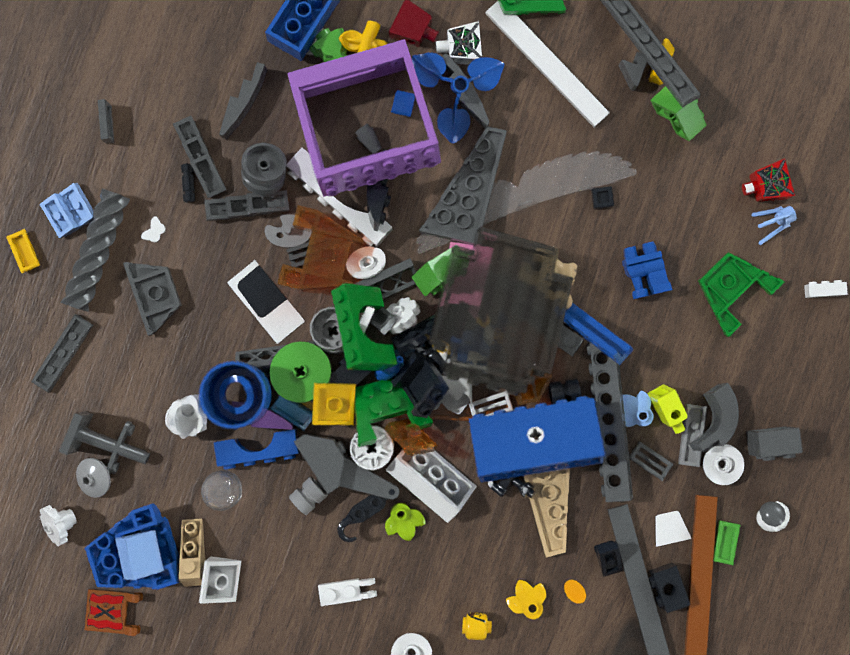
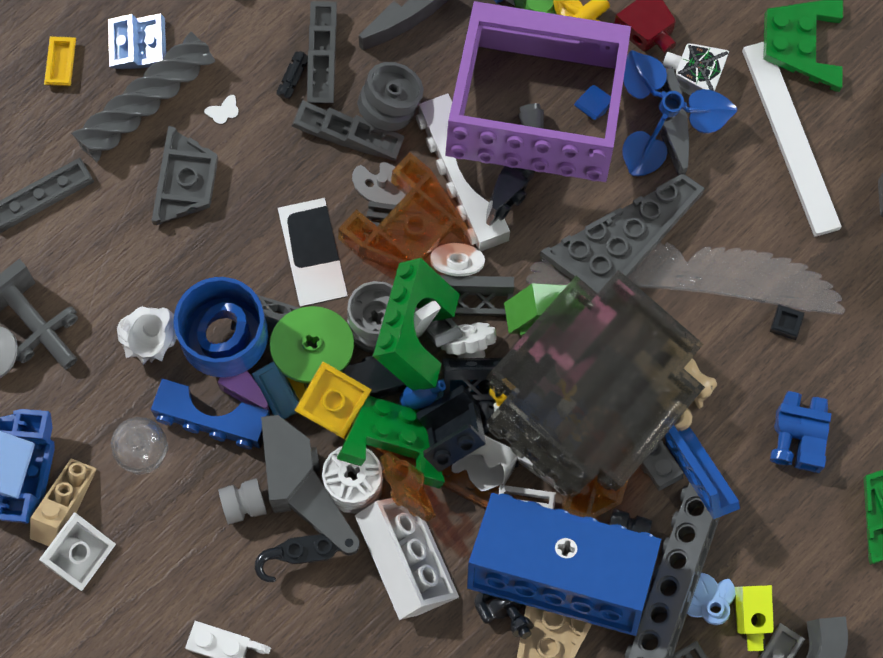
camera: 20 degrees right, 15 degrees down
(404, 524) = (344, 598): lime plate -> none

